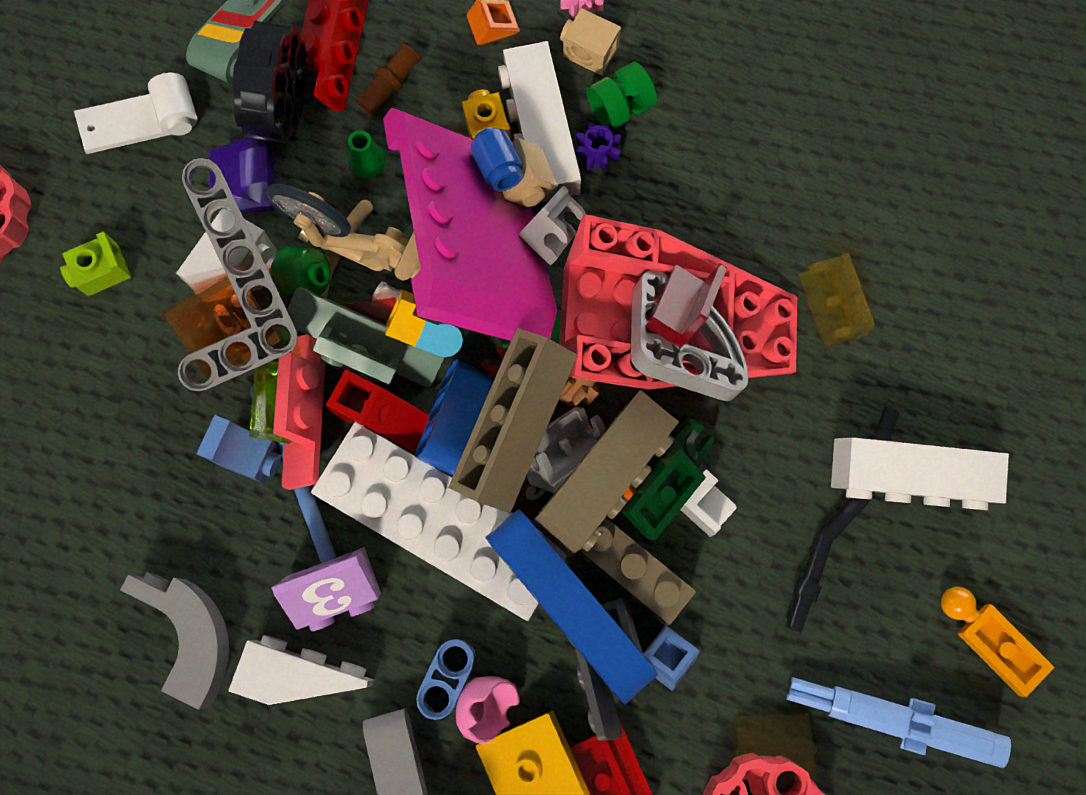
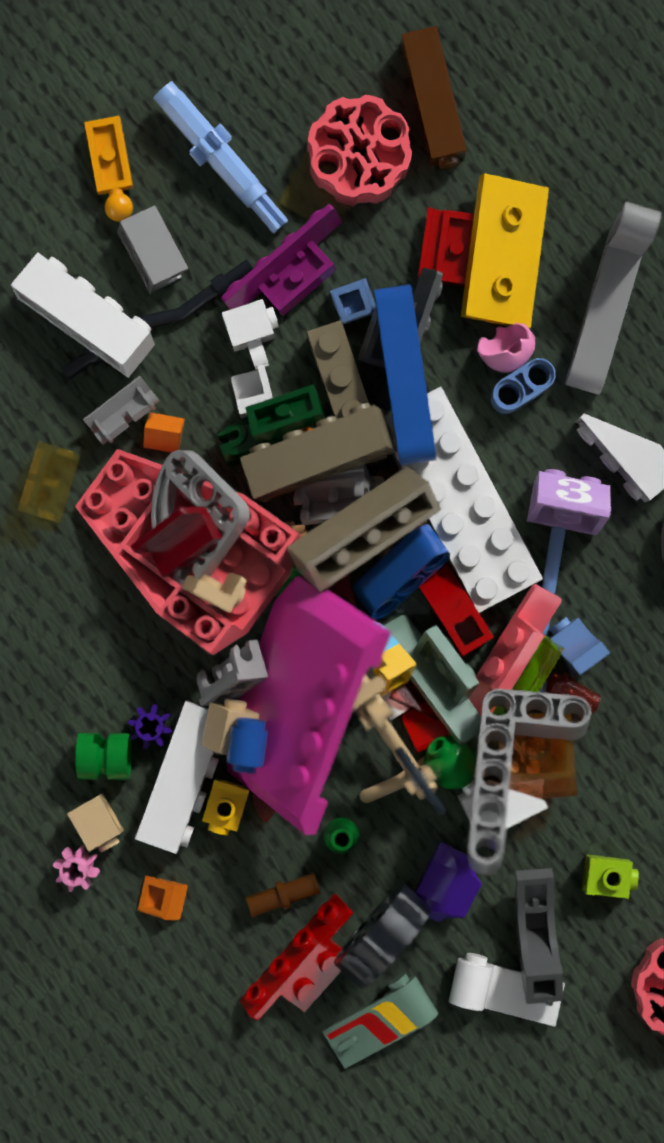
camera: 150 degrees left, 10 degrees up
(128, 168) = (537, 936): none -> dark grey arch
(230, 404) = (567, 685): none -> clear red cone
(346, 287) = (422, 729): none -> red slope
(623, 271) = (222, 596): none -> tan bracket
(752, 563) = (250, 327): none -> white brick
(752, 649) = (291, 269): none -> magenta bracket
(764, 414) = (163, 432): none -> orange slope
(818, 408) = (121, 409): none -> light grey hinge
(898, 582) = (152, 249): none -> light grey hinge

